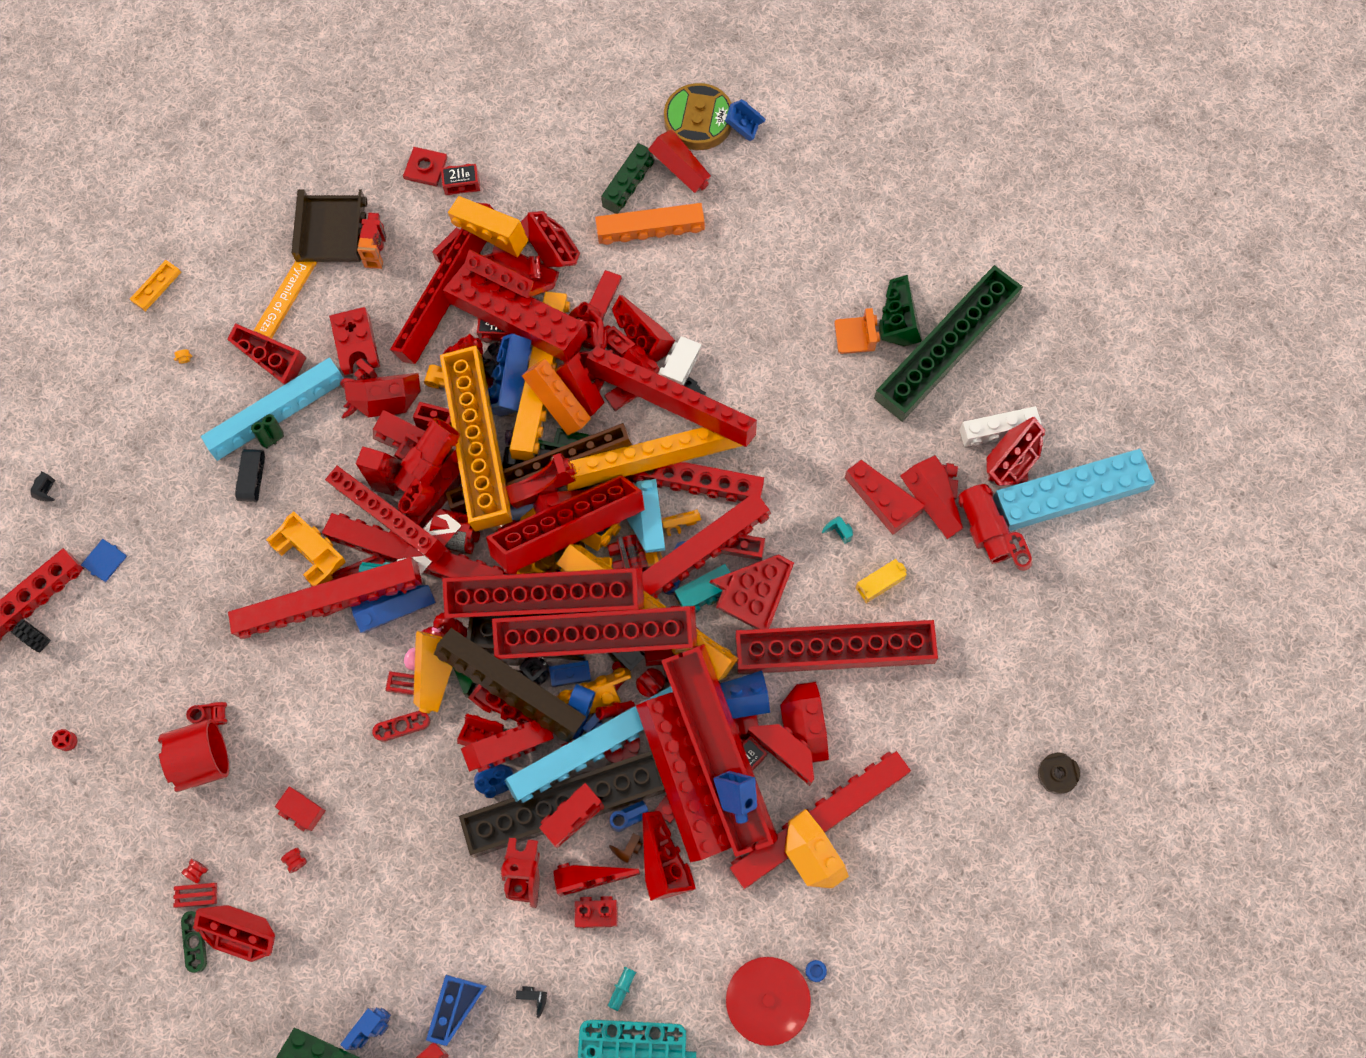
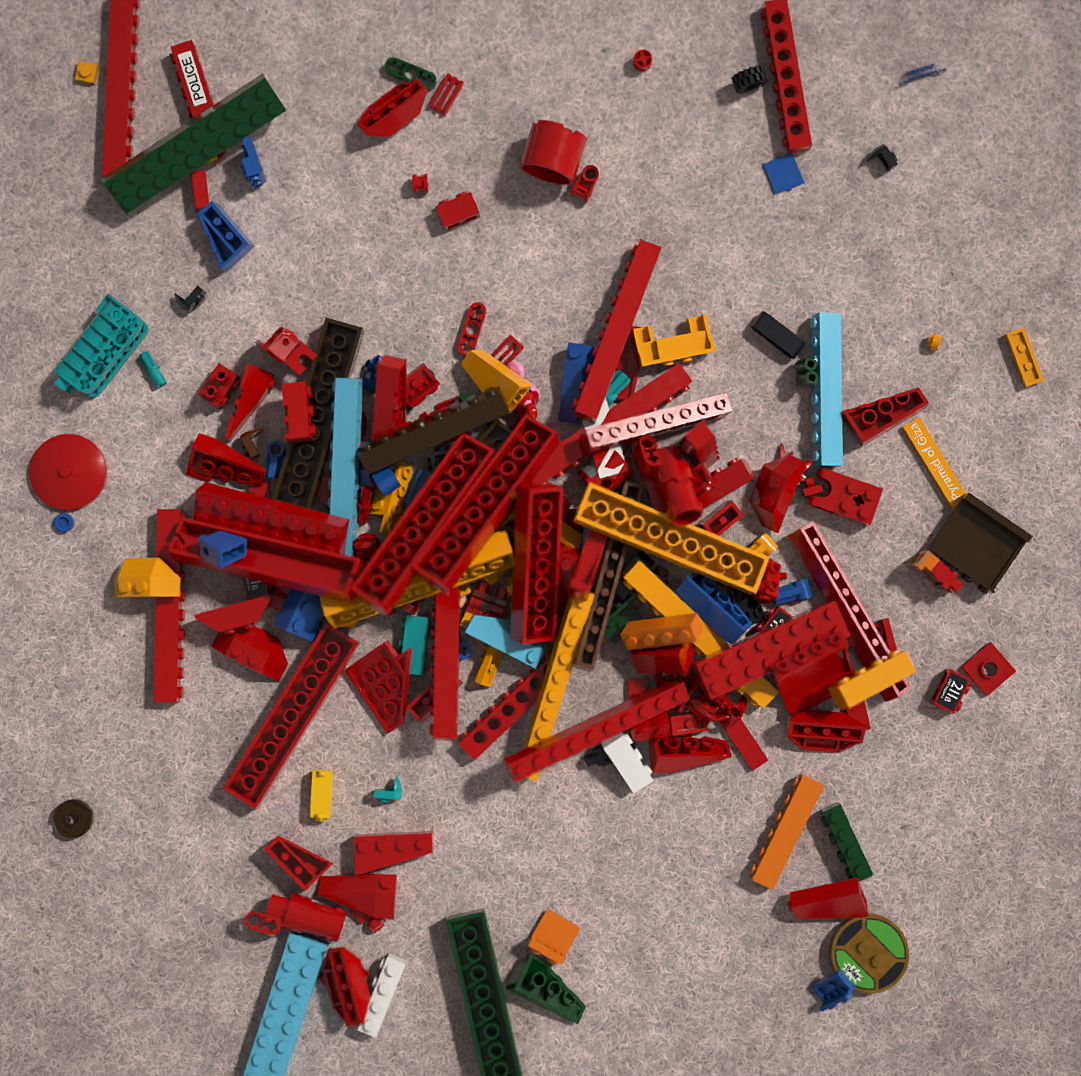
camera: 120 degrees right, 15 degrees up
(194, 871) = (464, 104): red wheel -> none
(455, 330) = (795, 591): none -> blue piece
(535, 269) = (807, 697): red pin -> none
(949, 557) = (297, 862): none -> red wedge

